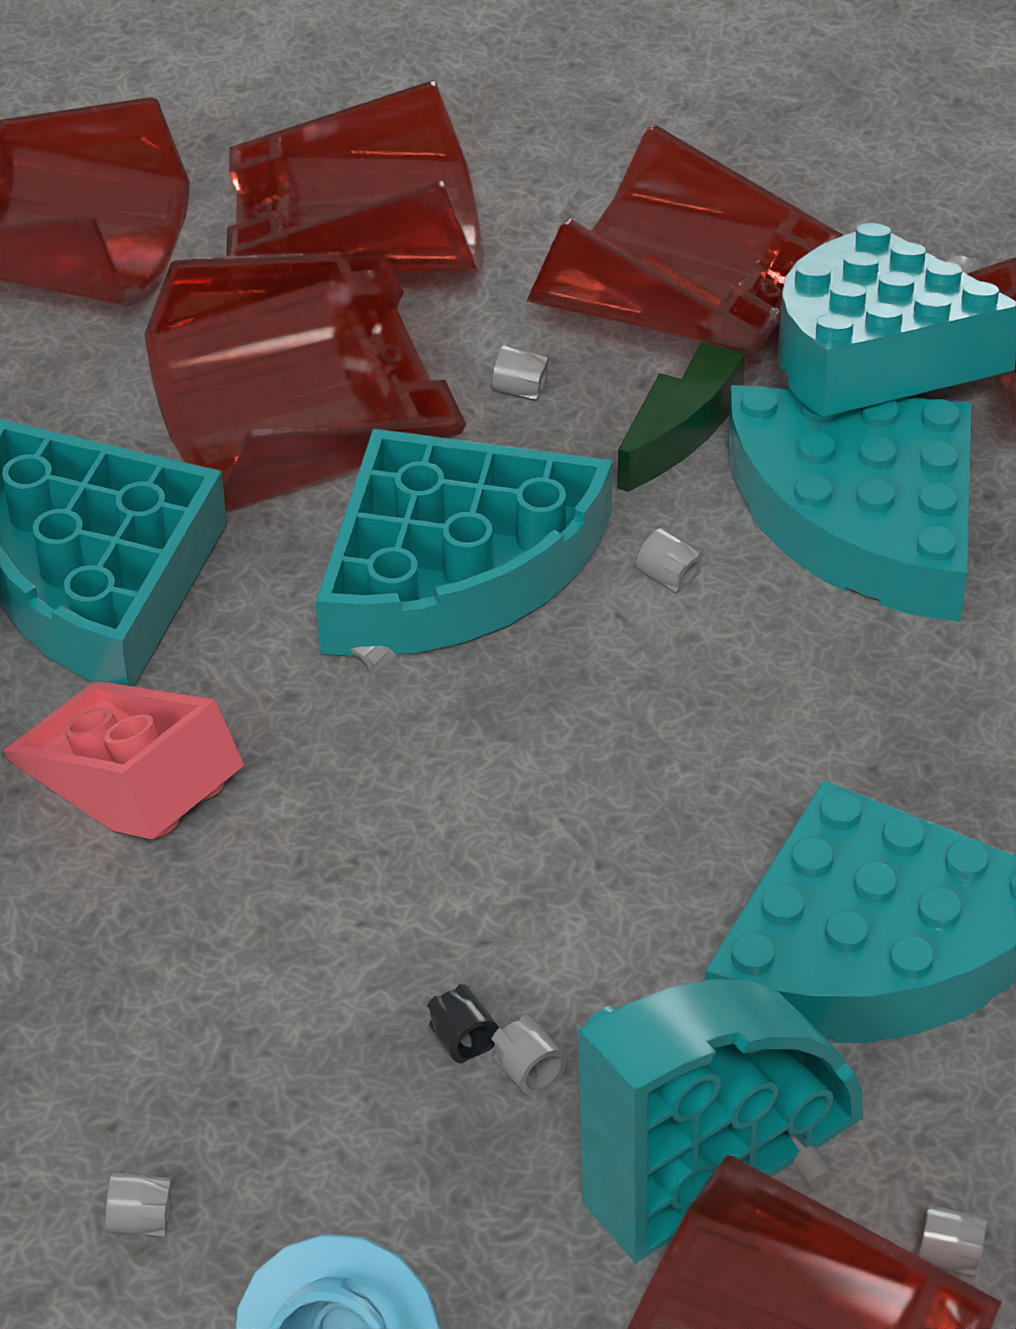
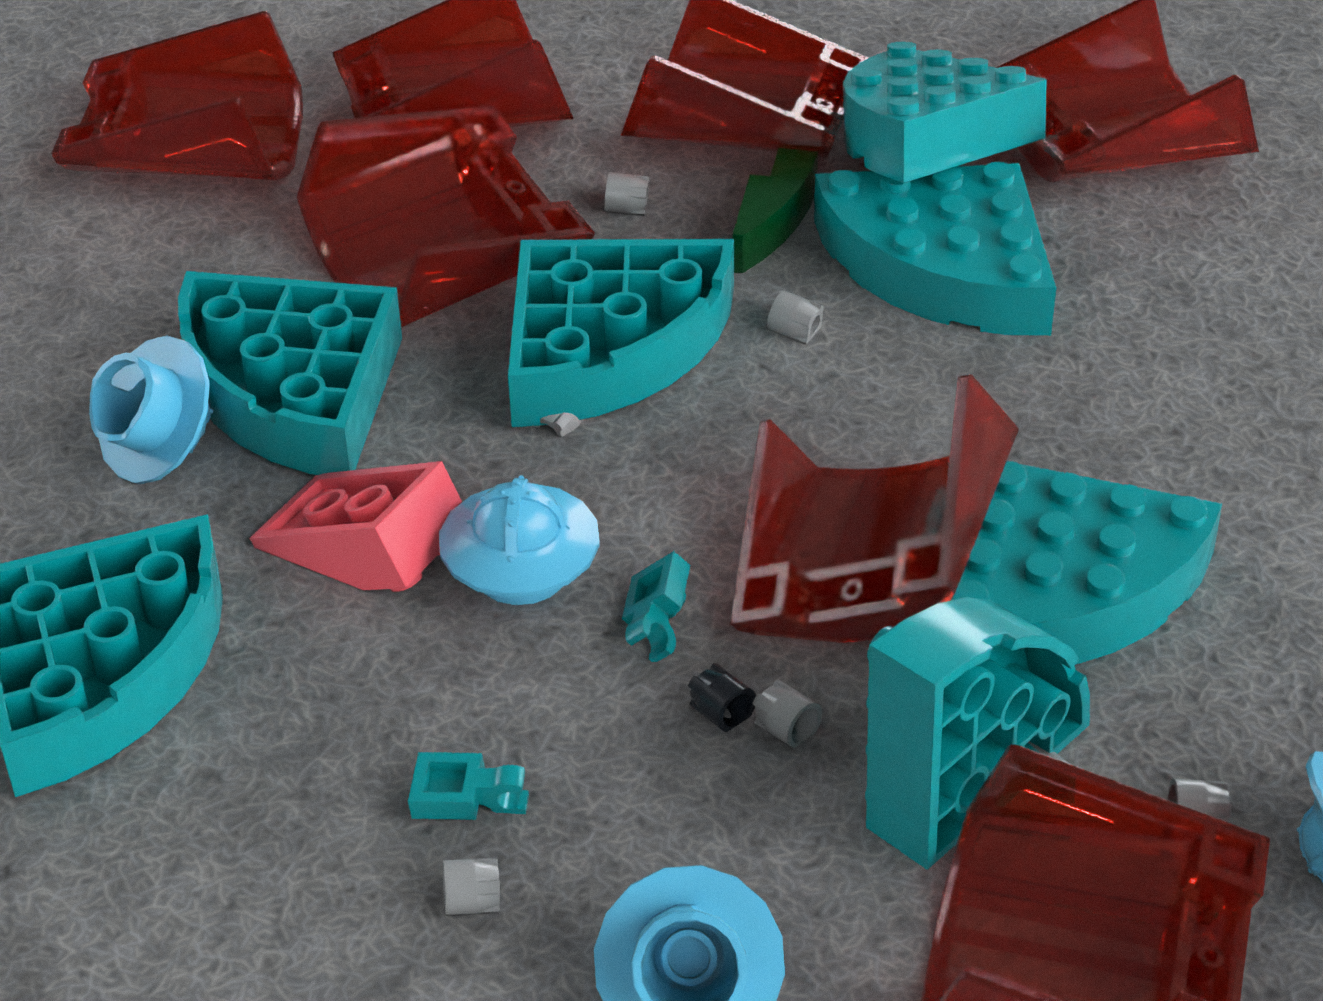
camera: 10 degrees left, 5 degrees down
(151, 1081) = (457, 783): none -> teal plate
(285, 802) = (519, 541): none -> medium azure helmet
(419, 892) = (652, 600): none -> teal plate
(663, 858) = (864, 546): none -> clear red windscreen

